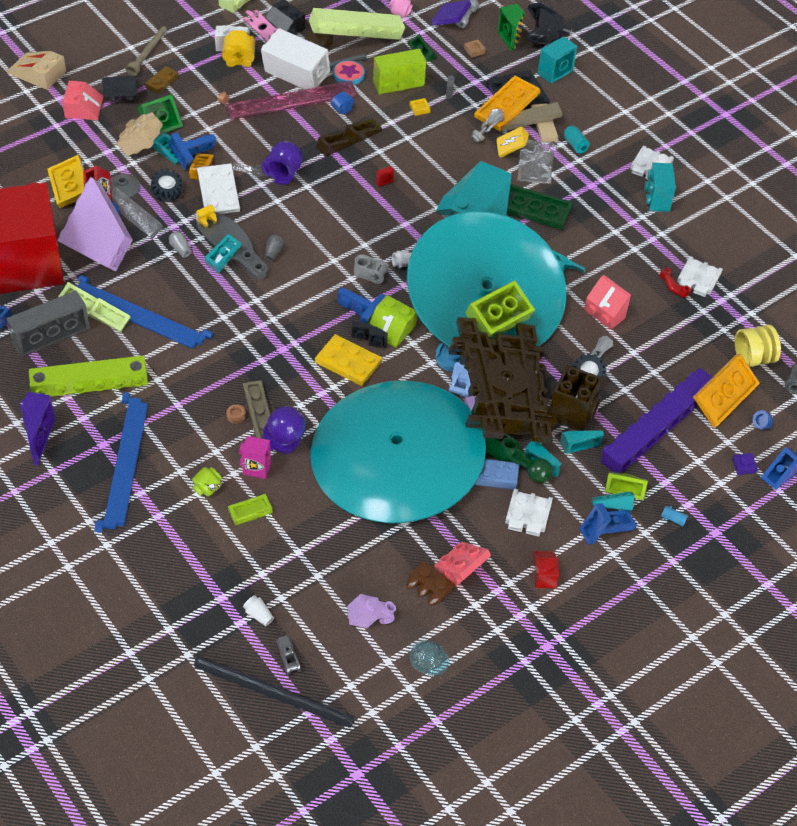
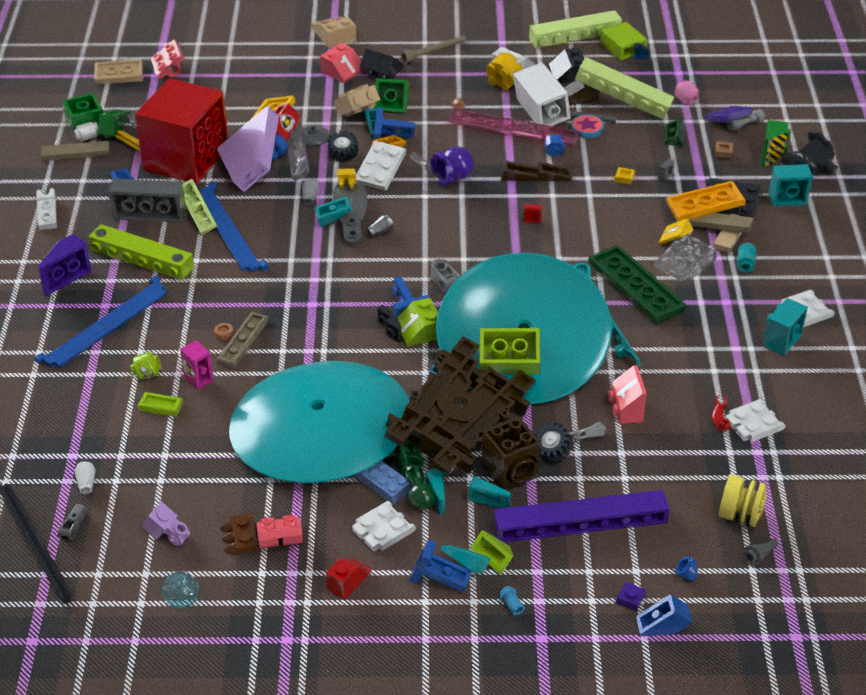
camera: 40 degrees right, 10 degrees down
(162, 80) = (423, 73): pearl gold plate -> none
(257, 22) = (546, 59): bright pink piece -> none
(284, 429) = (240, 356): dark purple tile -> none
(348, 360) = (355, 336): yellow plate -> none
(399, 71) = (627, 138): lime brick -> none
(479, 190) = (603, 259): teal wedge -> none
(495, 116) = (679, 205): light grey piece -> none
(726, 390) = (673, 522): light orange tile -> none

